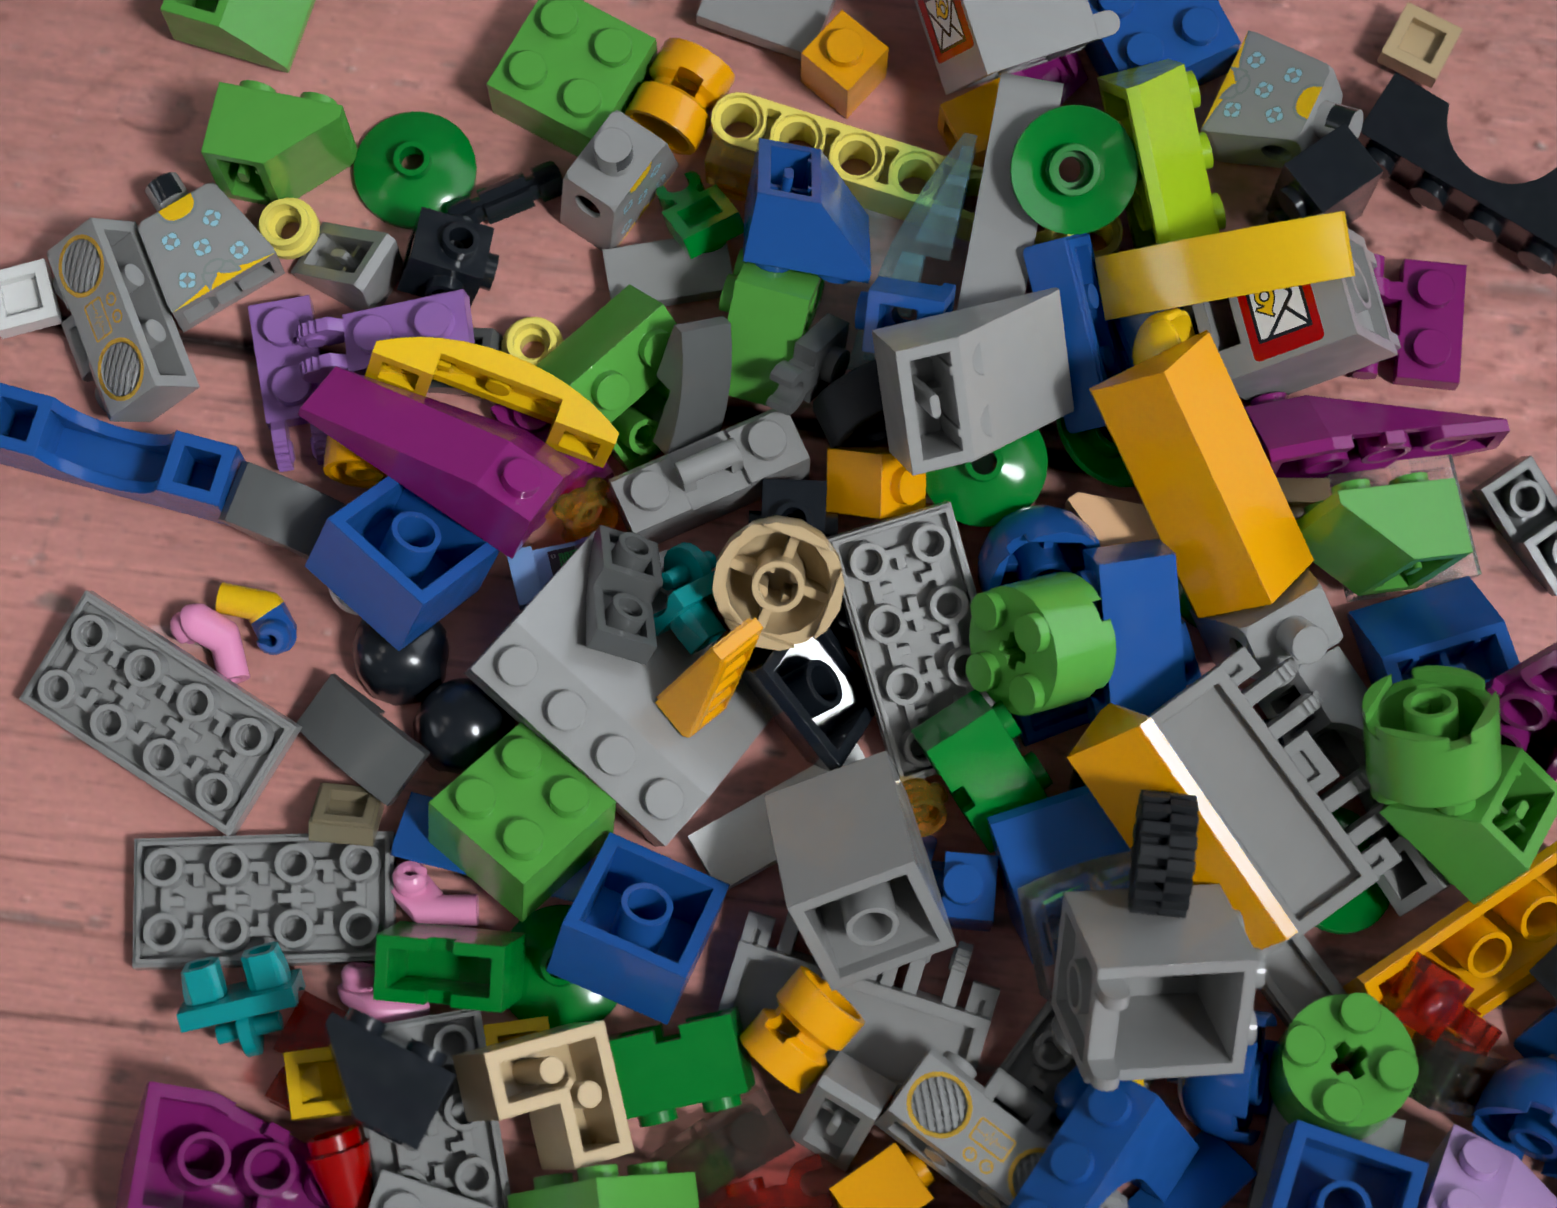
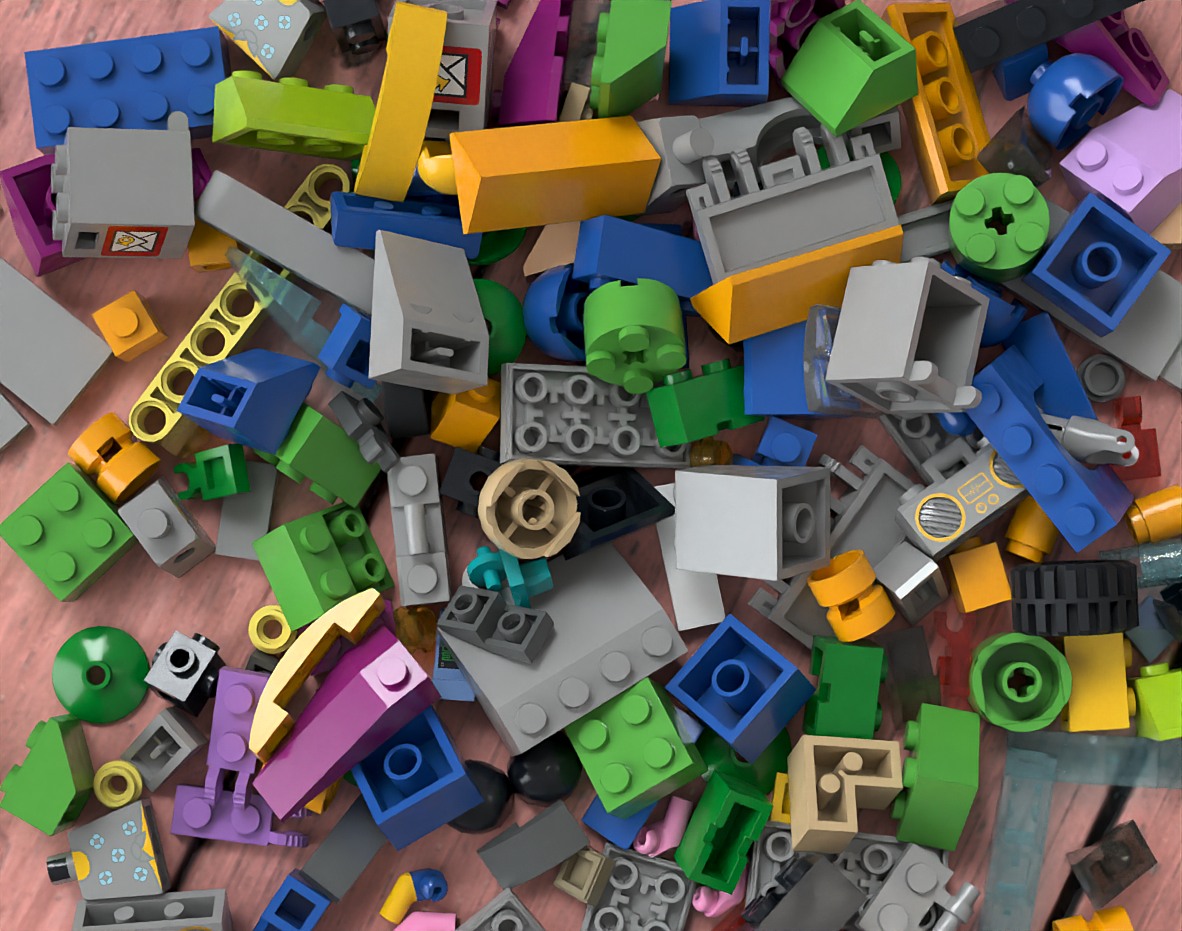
camera: 70 degrees left, 10 degrees up
(510, 195) = (147, 611): black axle -> none
(699, 377) = (350, 516): dark grey slope -> none
(710, 681) = (581, 582): light orange slope -> none
(1105, 175) = (305, 170): green dish -> none
(1163, 854) = (829, 301): black tyre -> none
(1432, 739) = (799, 81): bright green brick -> none
(1434, 998) = (970, 141): clear red plate -> none

